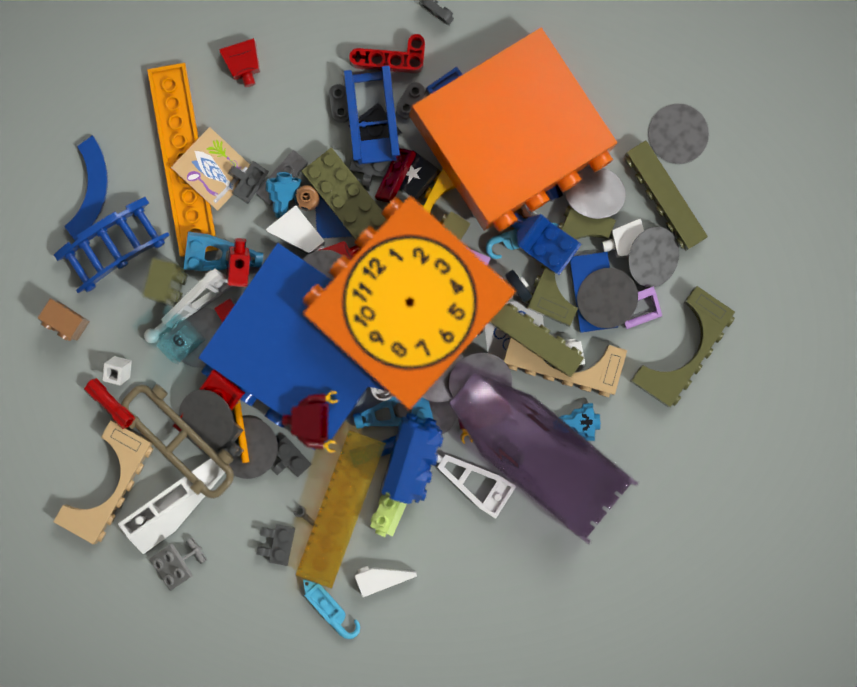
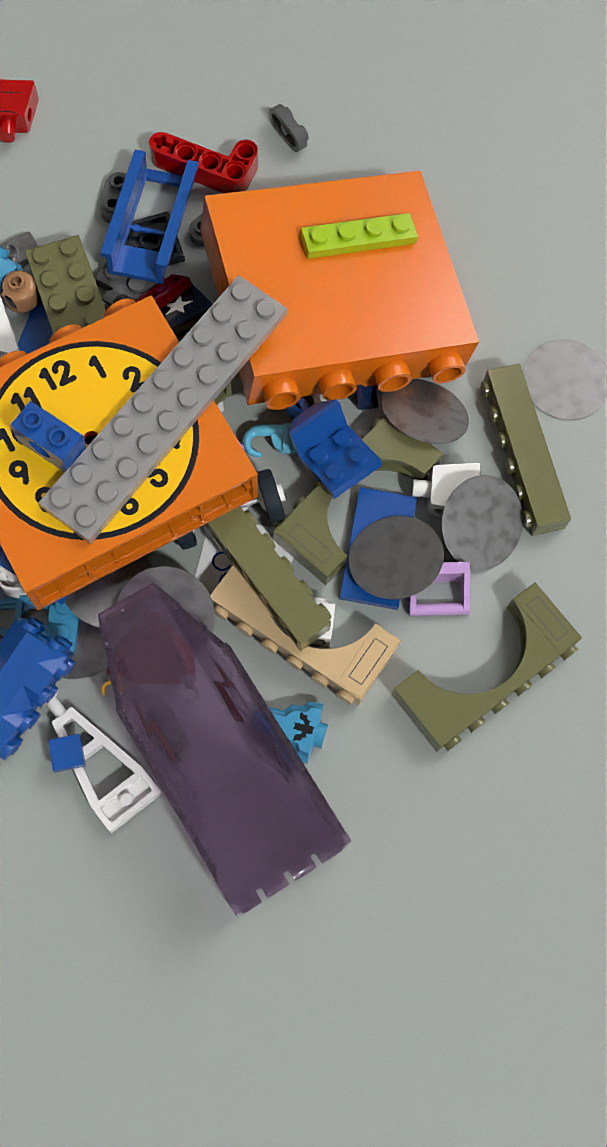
camera: 15 degrees right, 15 degrees down
(389, 314) = (48, 436): none -> blue brick
(447, 267) = (163, 409): none -> light grey plate
(454, 483) = (66, 753): none -> blue tile
(519, 96) = (358, 235): none -> lime plate

